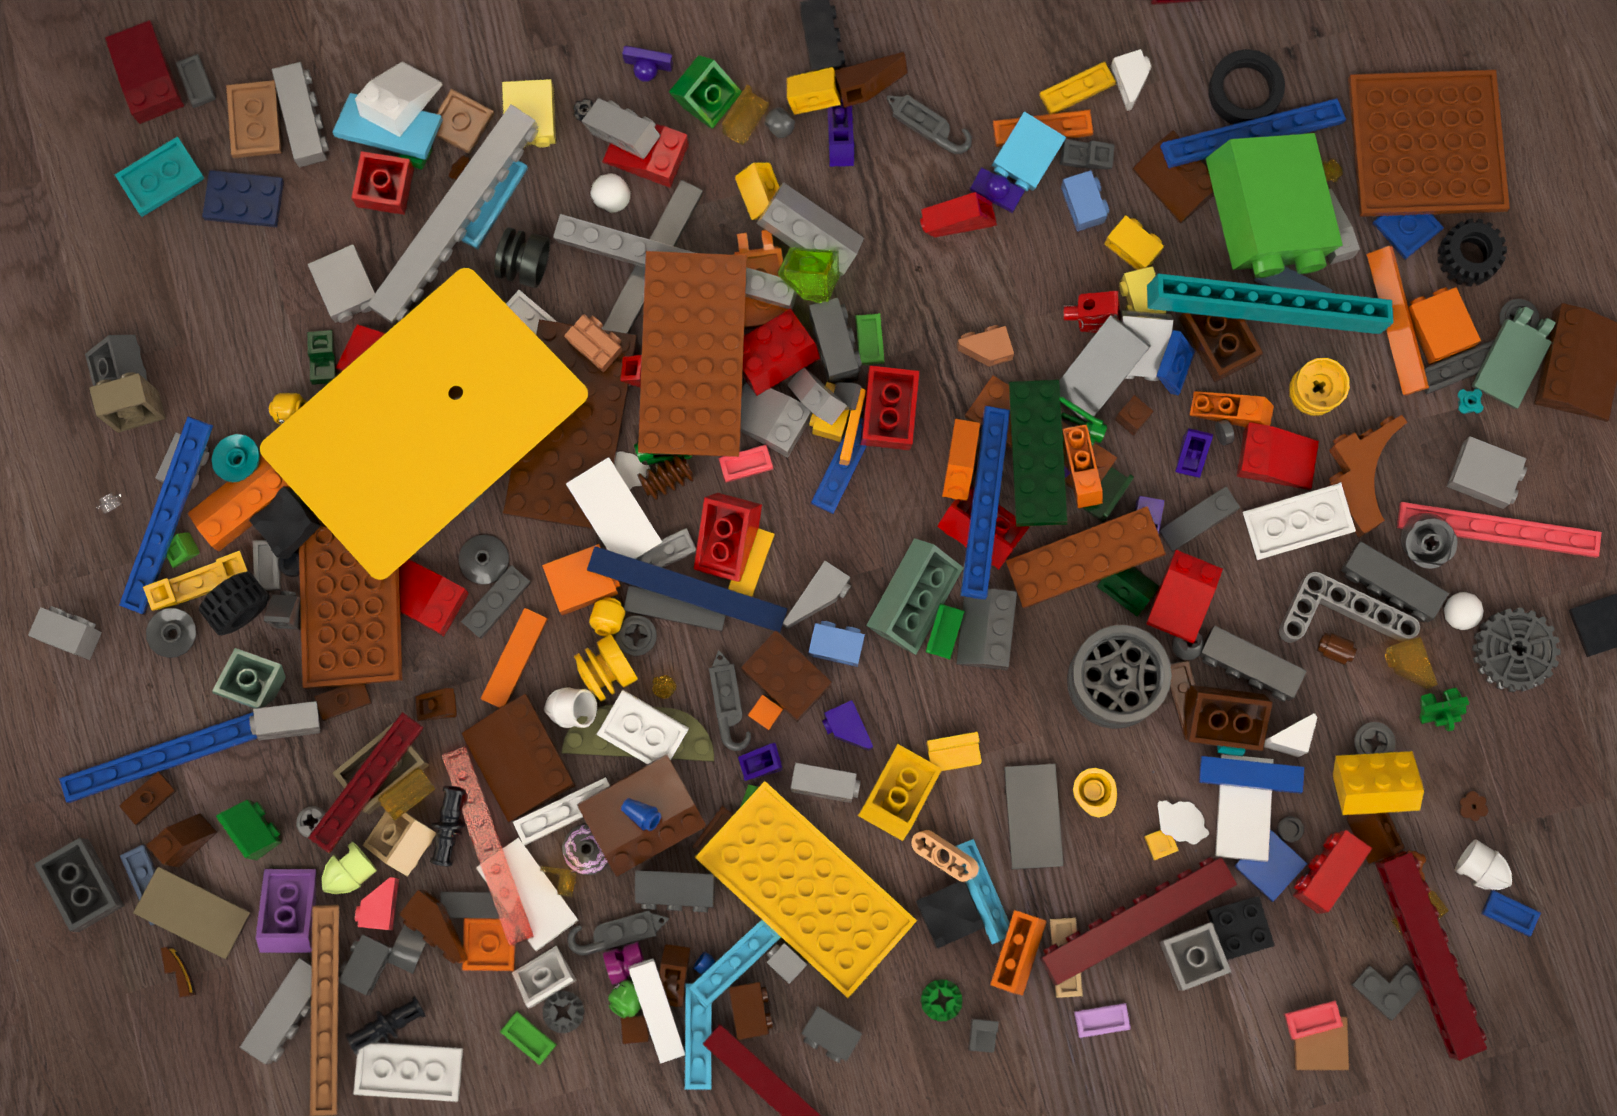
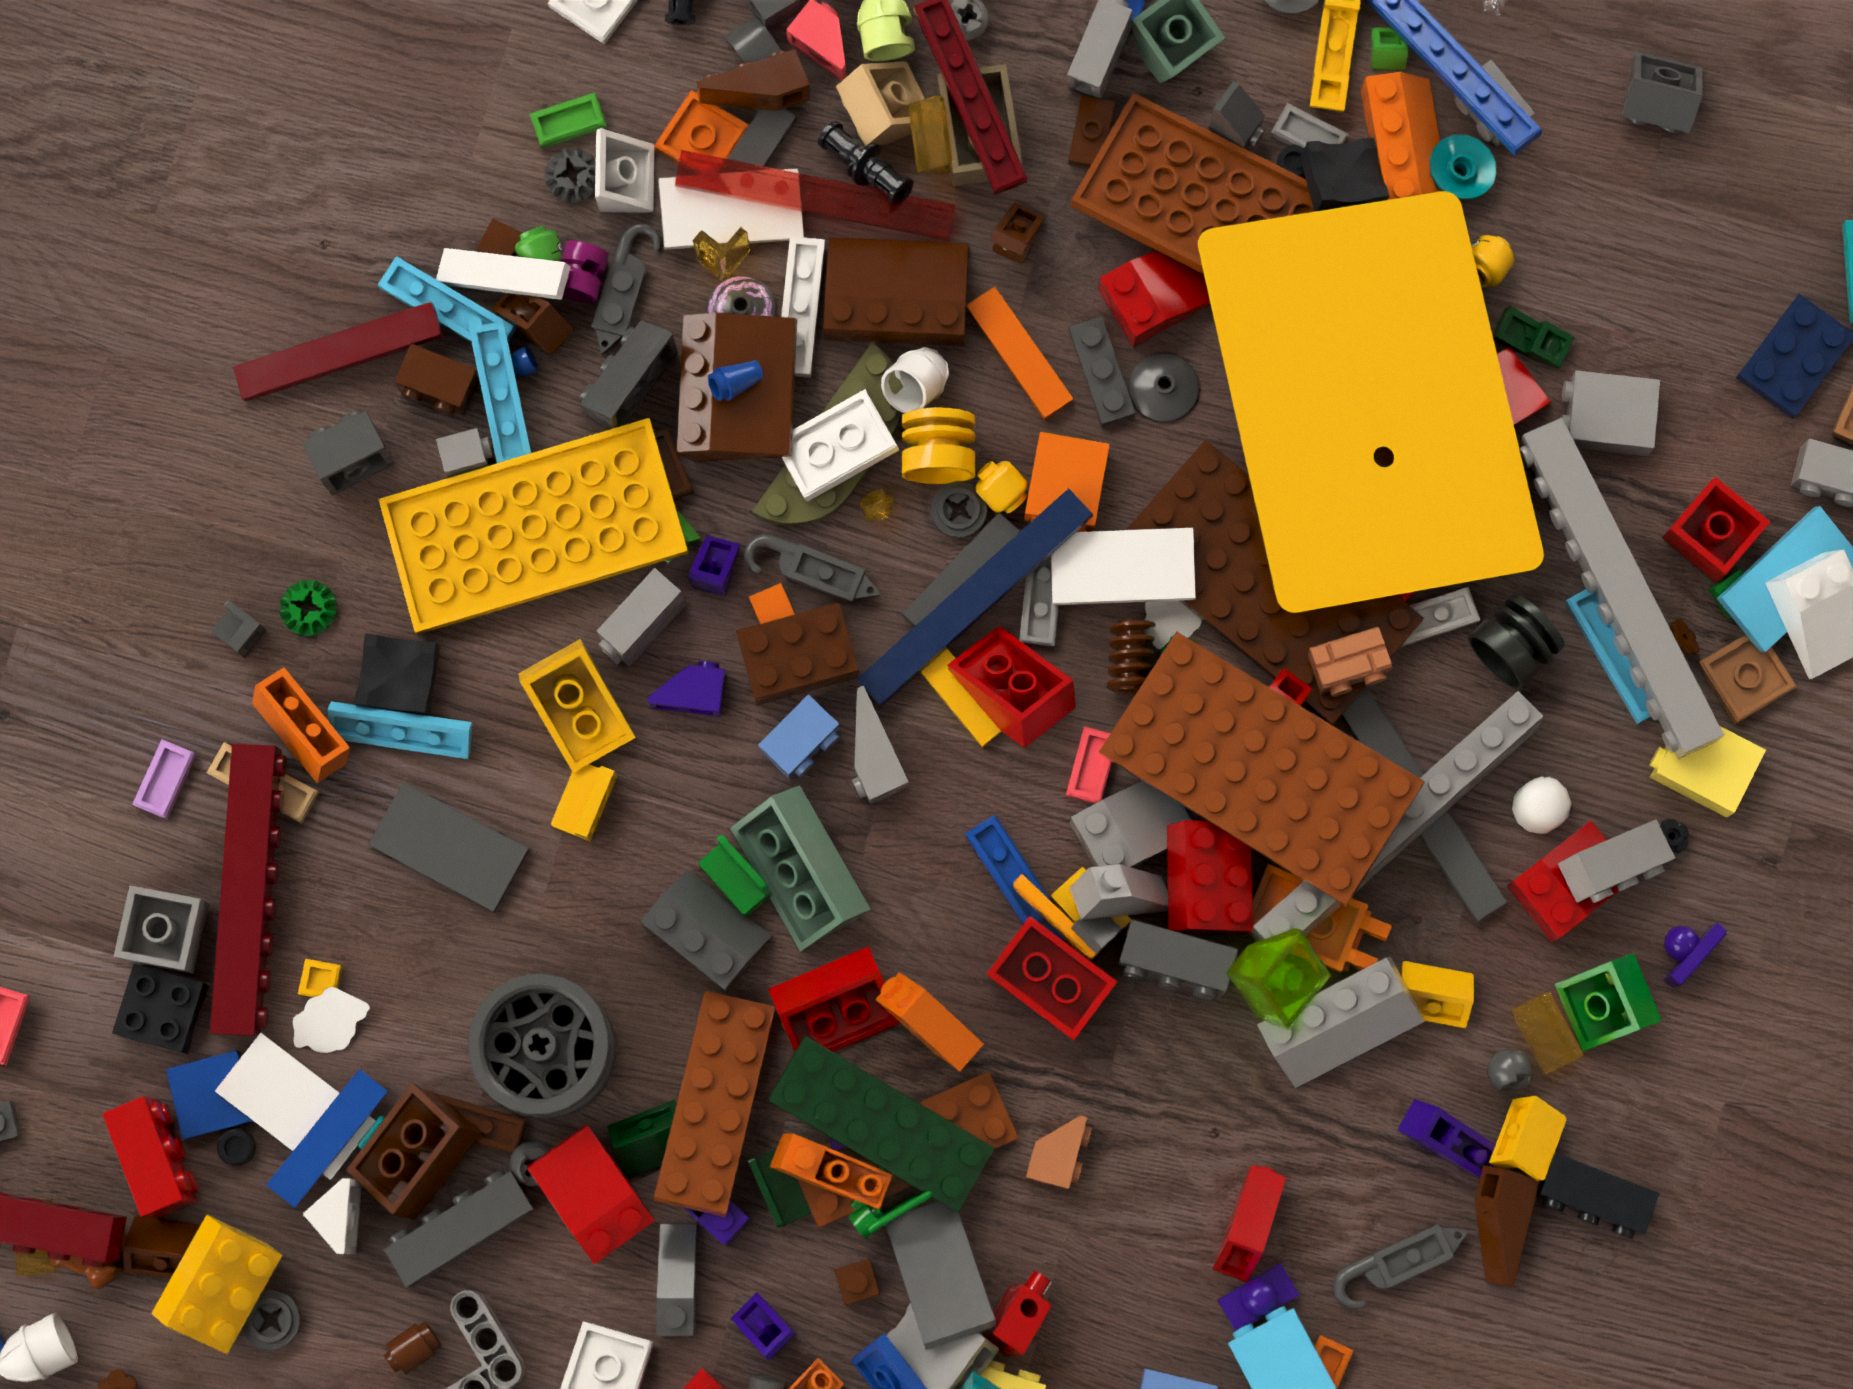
camera: 120 degrees right, 0 degrees up
(127, 402) = (1604, 73): dark tan brick -> none
(234, 603) = (1279, 64): black tyre -> none
(870, 339) = (1158, 1014): bright green tile -> none
(956, 855) = (444, 716): light nougat beam -> none
(985, 503) = (857, 1017): blue tile -> none
(1095, 792) = (427, 935): yellow piece -> none

